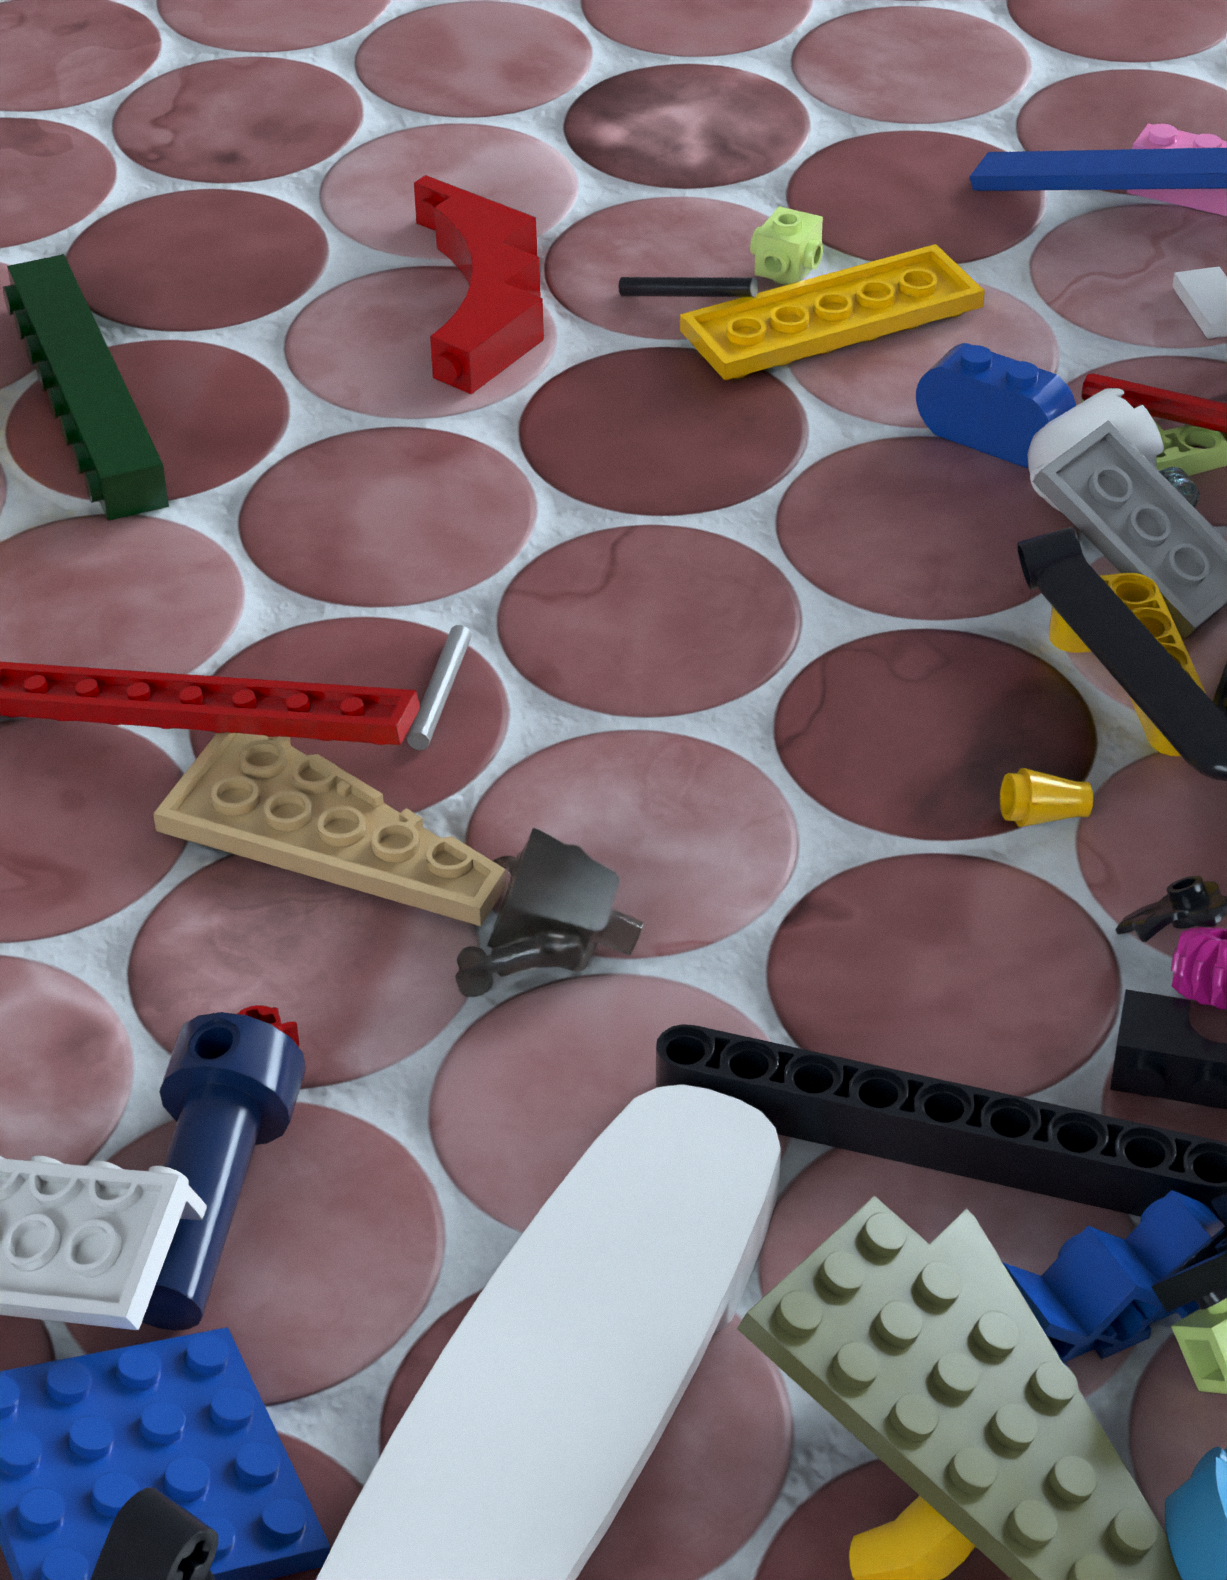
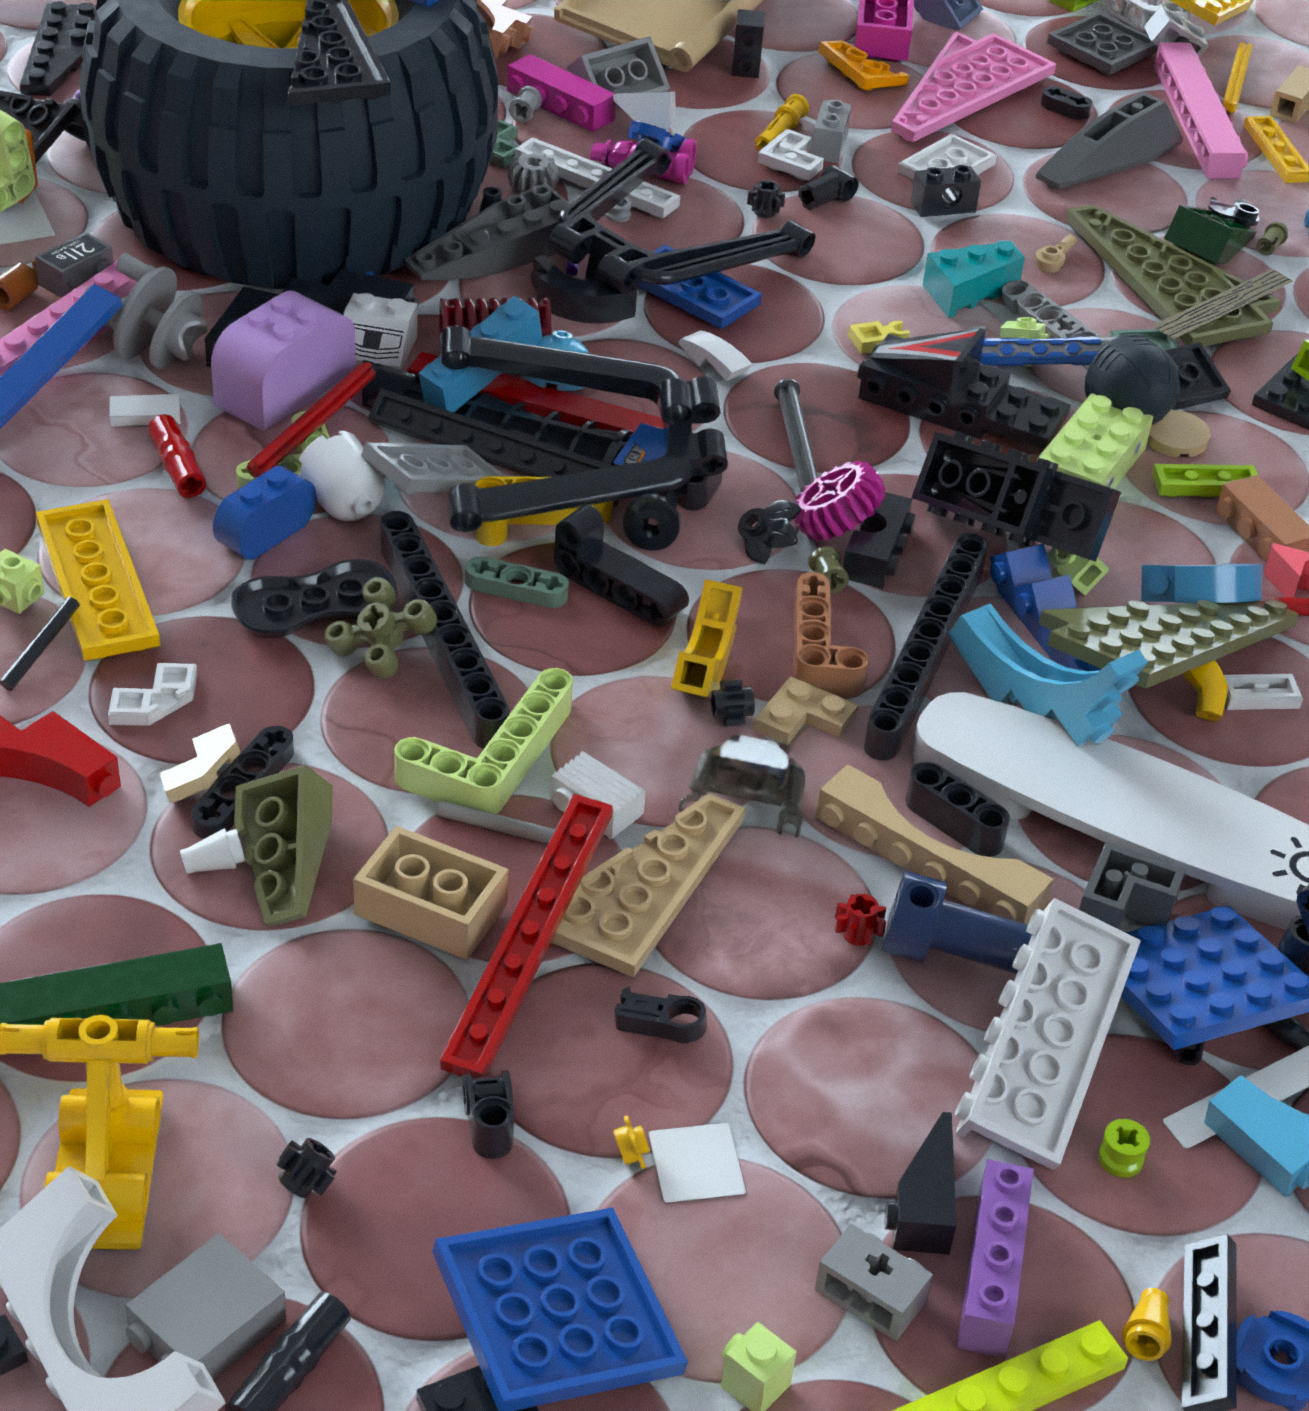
camera: 90 degrees left, 0 degrees up
(79, 847) = (653, 1016): none -> black piece
(269, 612) = (431, 892): none -> tan brick
(324, 1359) = (1131, 887): none -> dark grey brick
(331, 1220) = (863, 812): none -> tan arch
(346, 464) = (214, 853): none -> white cone
(394, 505) = (285, 836): none -> olive wedge
(490, 762) = (599, 782): none -> white brick
(515, 437) = (200, 773): none -> tile
(515, 663) = (502, 765): none -> yellowish green beam
(517, 1161) = (957, 809): none -> black beam
(536, 483) = (256, 753): none -> black beam
(610, 385) = (171, 690): none -> white tile
(715, 885) = (732, 702): none -> black gear
(729, 1257) = (1020, 674): none -> medium azure arch
(751, 978) = (801, 704): none -> tan plate
(776, 525) = (380, 628): none -> olive gear
(810, 592) = (451, 640): none -> black beam
(822, 857) = (708, 650): none -> yellow arch
(852, 486) = (286, 604): none -> black plate
(914, 978) = (816, 661): none -> nougat beam
(961, 676) = (549, 588): none -> sand green beam
(1001, 738) = (611, 573): none -> black beam
(1041, 798) = (662, 560): yellow cone -> none
(1097, 994) = (827, 562): none -> olive bush
(1110, 333) = (177, 456): none -> red axle
(1149, 772) = (659, 508): none -> black piece

